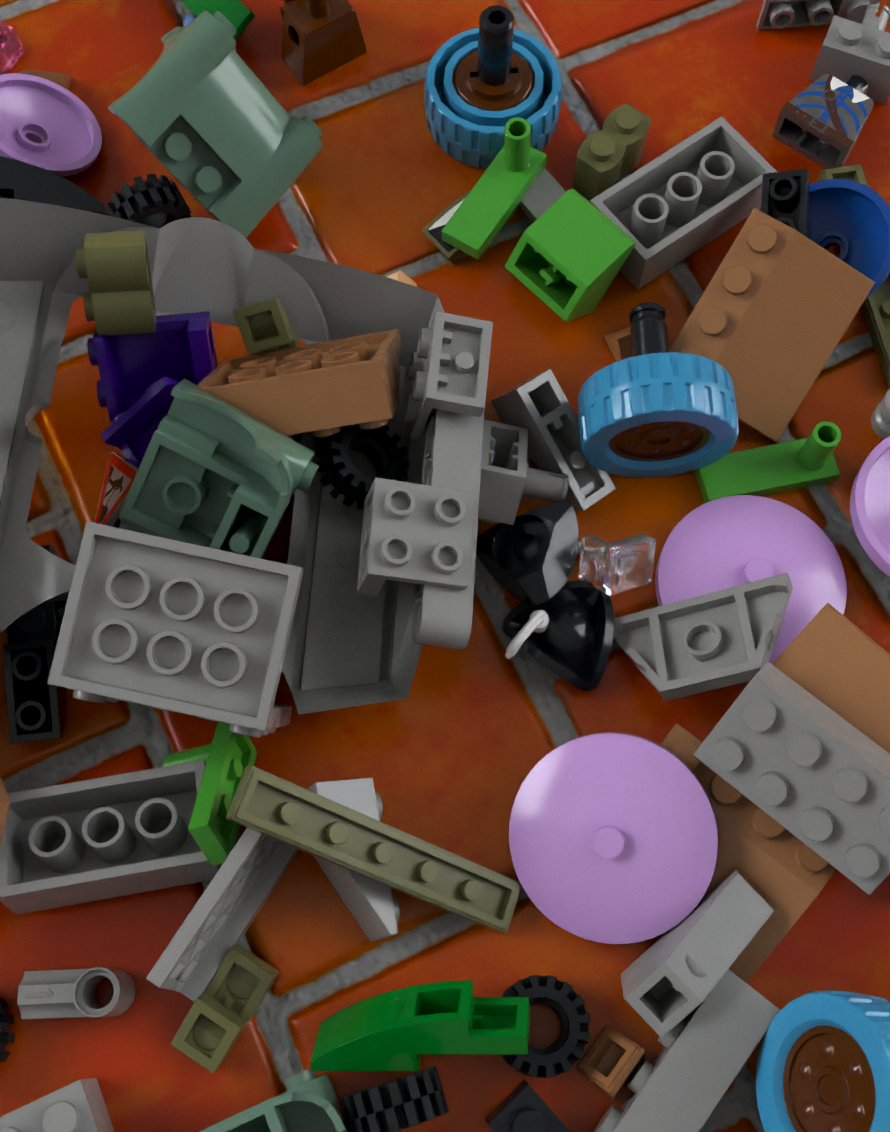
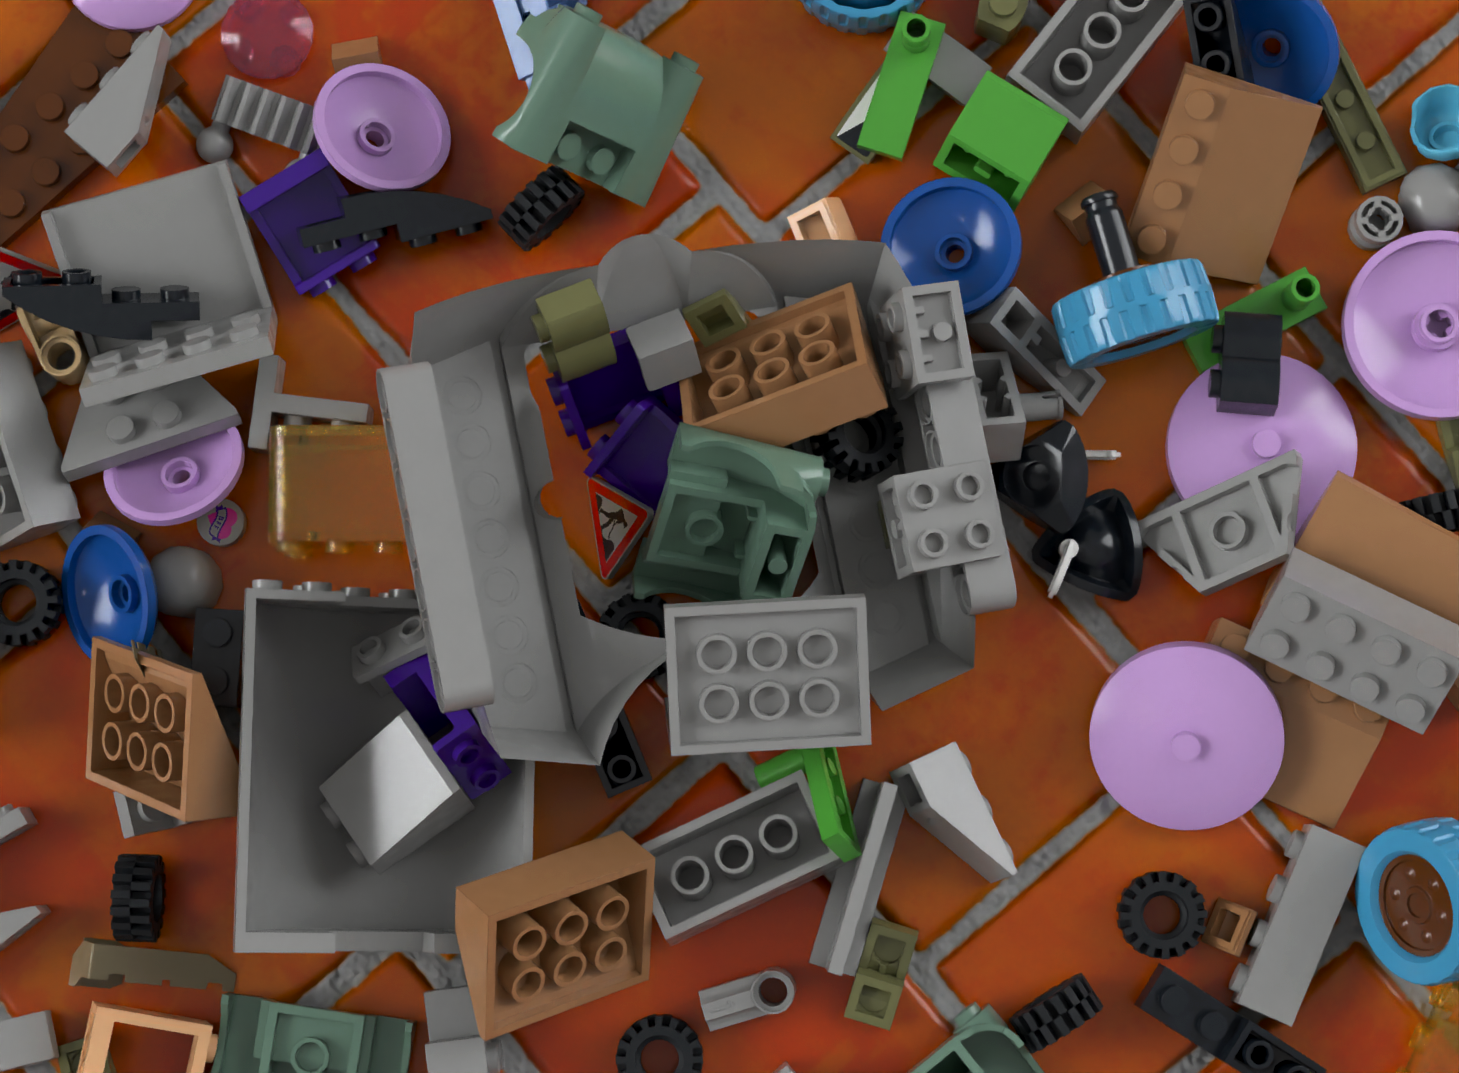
camera: 10 degrees left, 15 degrees up
(204, 337) = (664, 349): none -> light grey panel
(373, 849) = (983, 809): olive tile -> none
(430, 1018) = (1066, 937): green slope -> none
(526, 322) = (950, 217): none -> blue dish
(617, 564) = (1129, 471): clear bracket -> none
(694, 955) = (1281, 822): light grey slope -> none
(755, 496) = (1248, 363): none -> black brick

